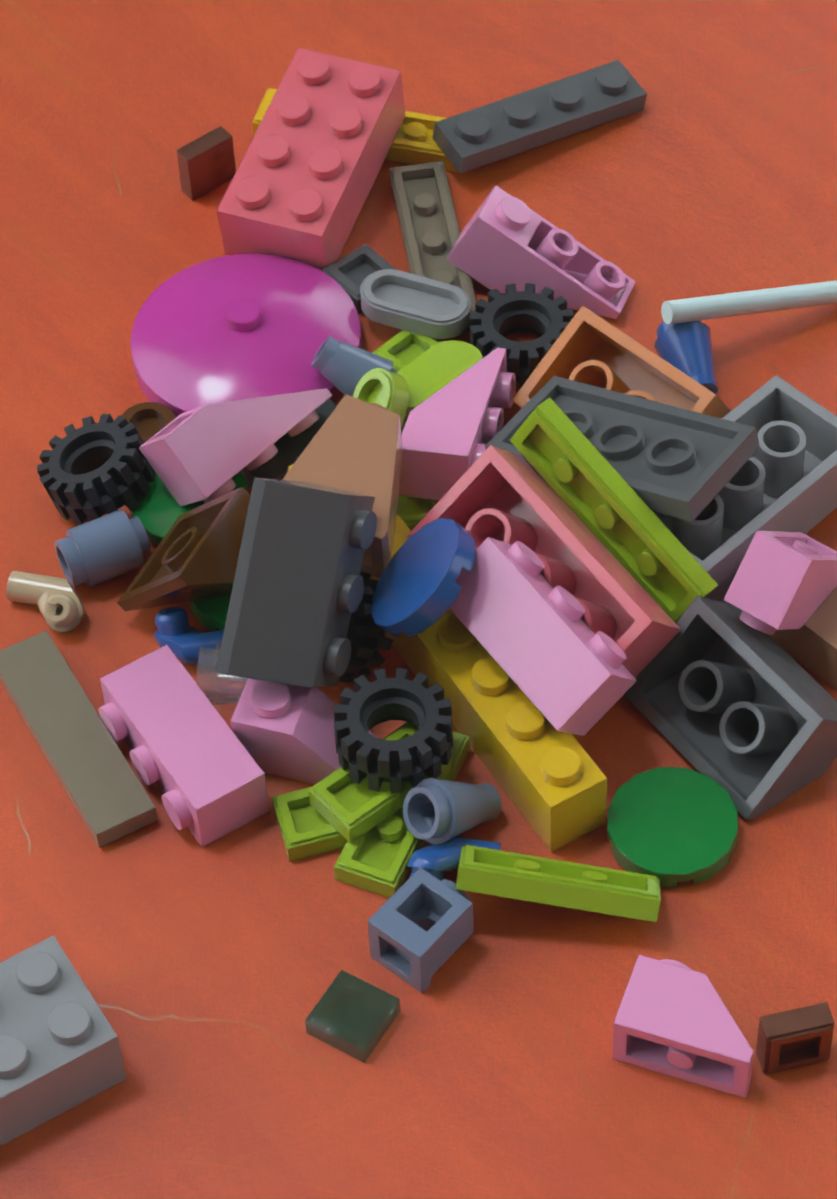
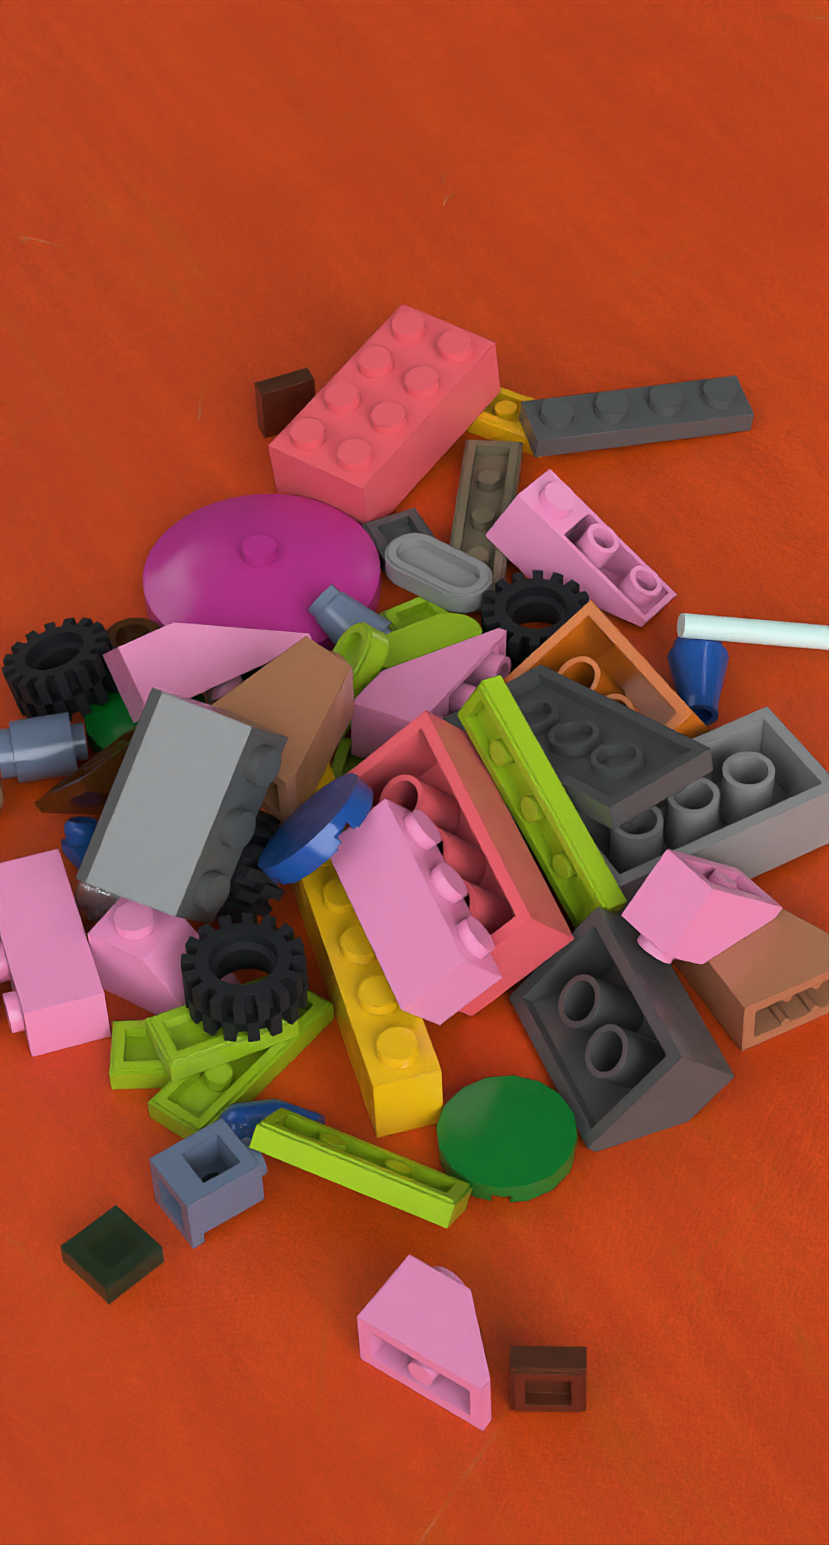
camera: 15 degrees right, 5 degrees down
(447, 808) = (277, 1068): sand blue cone -> none

